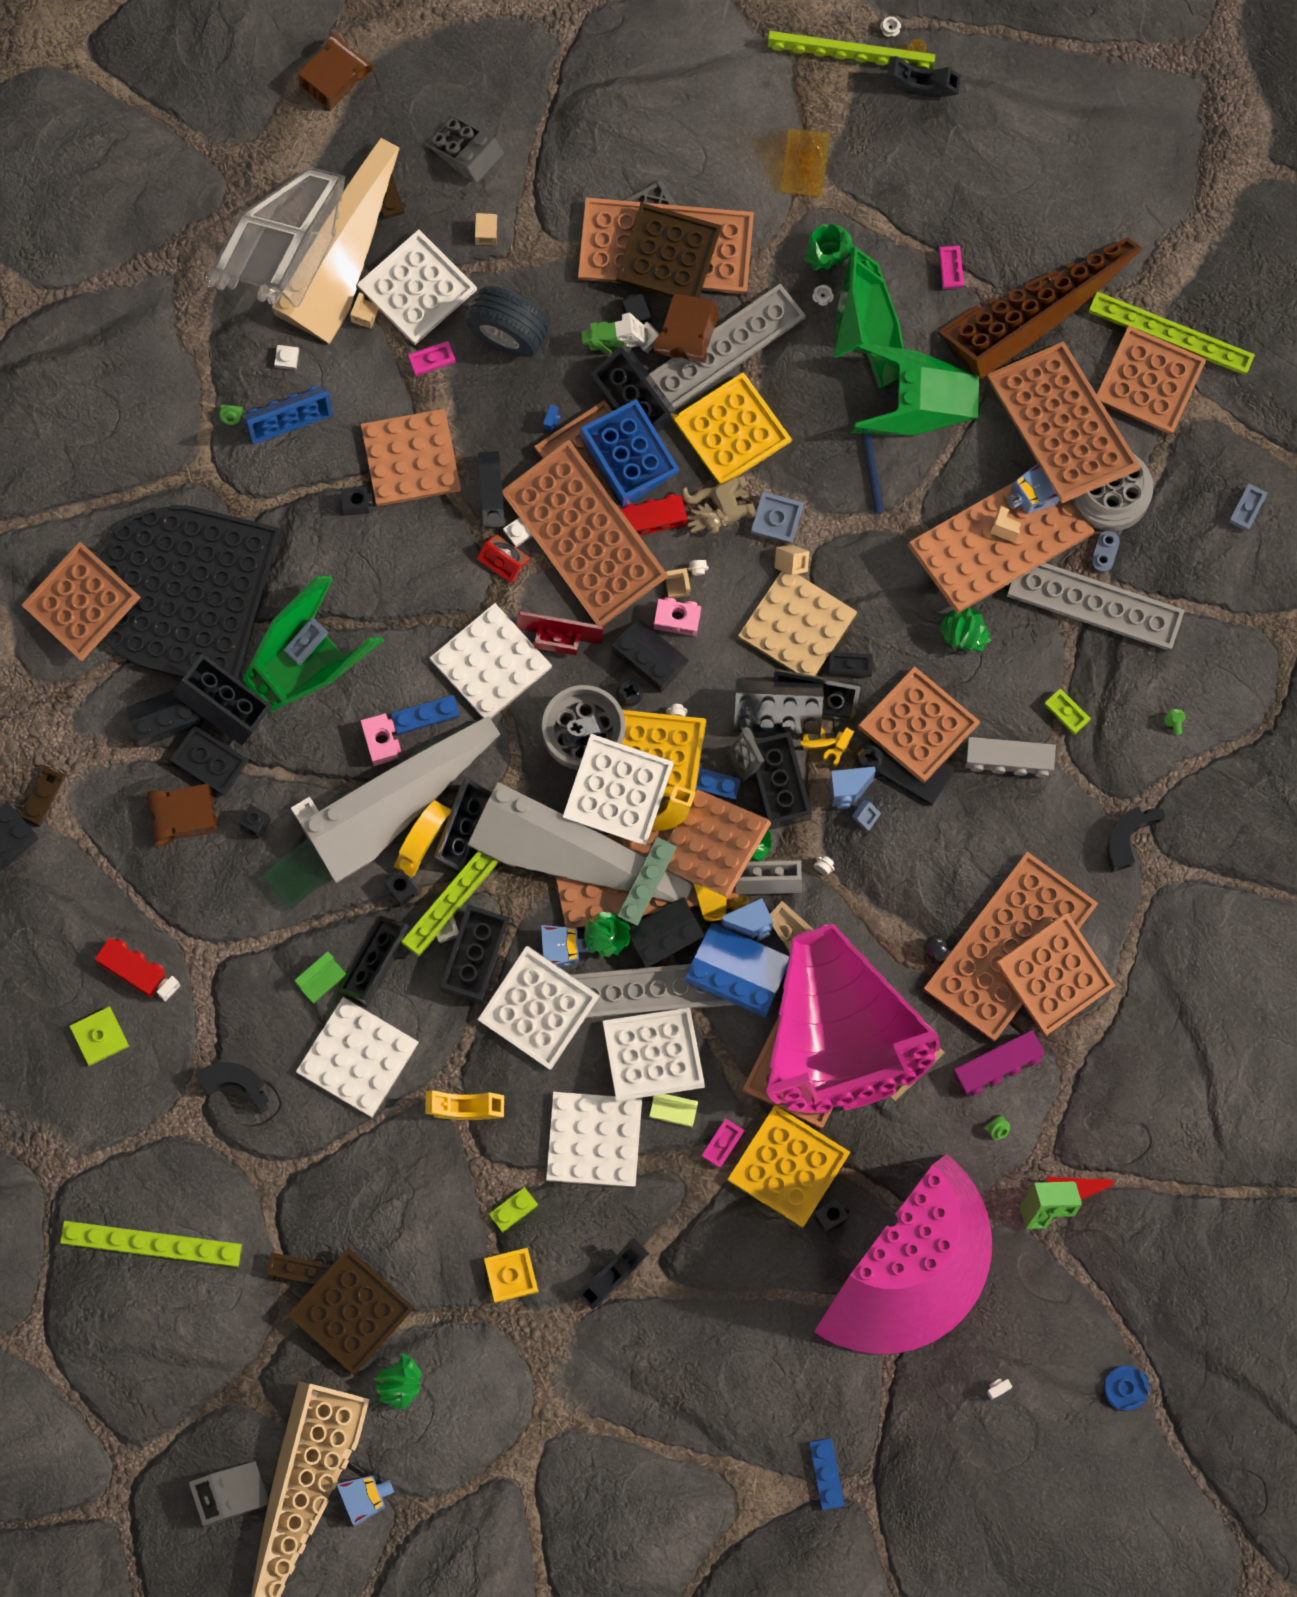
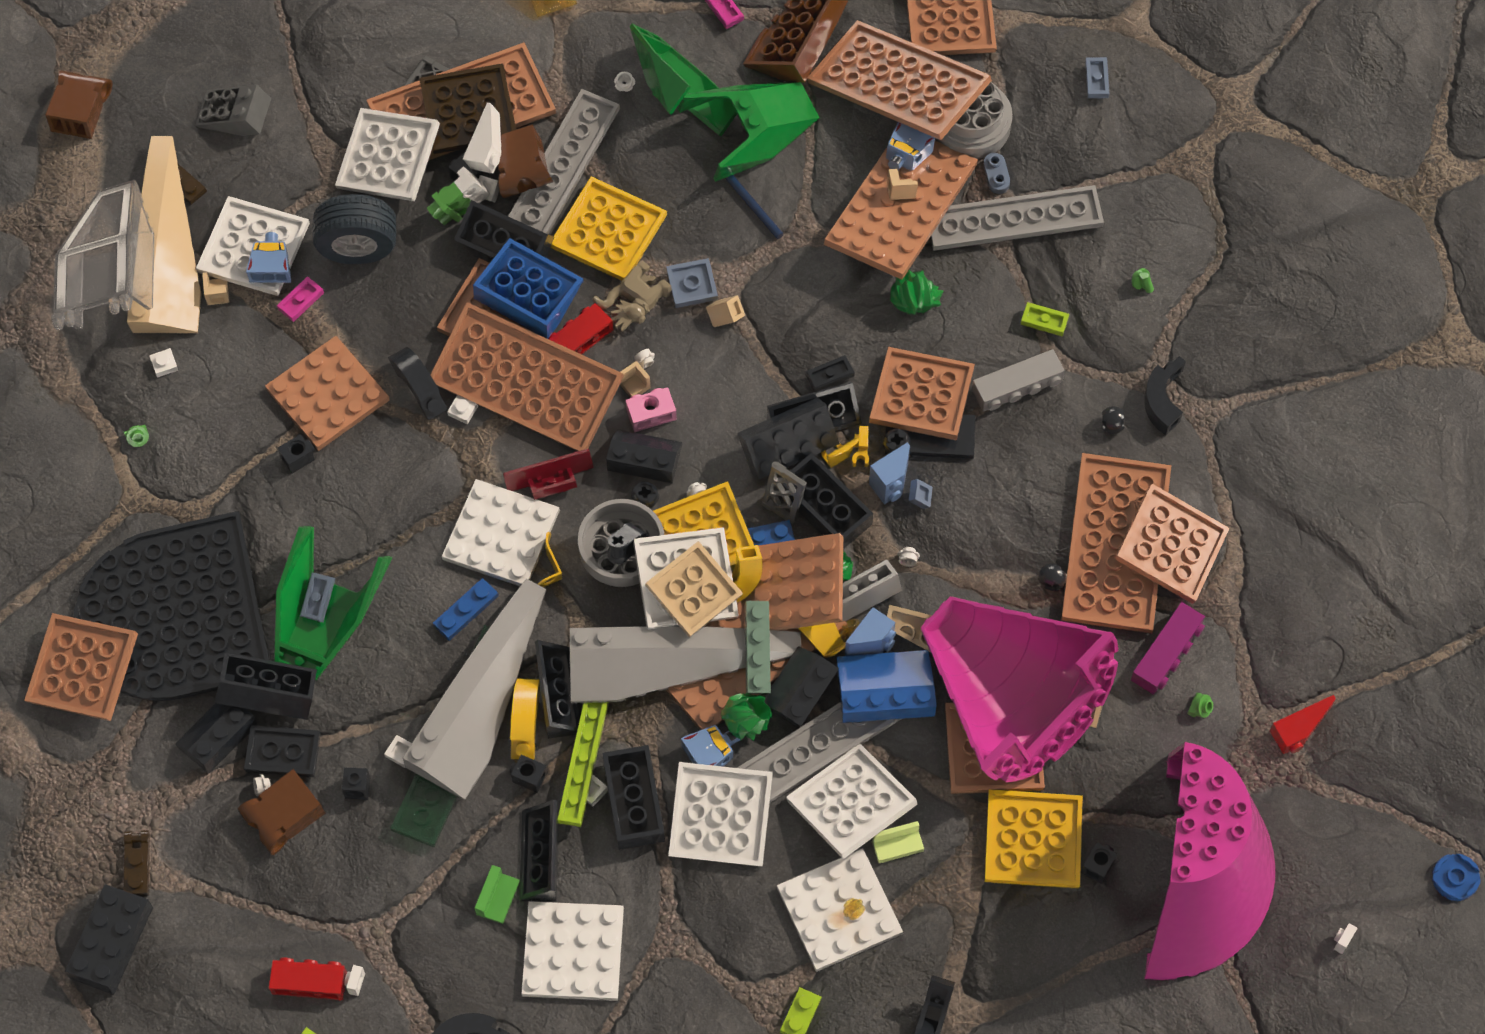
camera: 25 degrees left, 10 degrees down
(177, 781) = (260, 784): none -> white plate
(288, 414) = (193, 408): blue slope -> none
(380, 752) = (442, 662): bright pink brick -> none
(421, 311) = (269, 261): none -> medium blue torso
(464, 1107) = (703, 941): yellow arch -> none
(486, 229) = (290, 168): tan panel -> none
(503, 558) = (461, 437): red panel -> none
(516, 727) = (555, 577): none -> yellow piece
(552, 419) = (440, 297): blue plate -> none
(575, 261) = (387, 154): none -> white plate
(603, 1146) = (853, 908): none -> clear yellow plate
(618, 804) = (693, 589): none -> tan plate
(663, 298) = (485, 145): none -> white slope
(722, 1143) = (961, 850): dark pink plate -> none
(797, 624) = (761, 363): tan plate -> none
(828, 247) = (607, 38): green hair -> none
(1049, 1201) = (1287, 744): bright green panel -> none
(1072, 835) = (1113, 420): none -> black piece

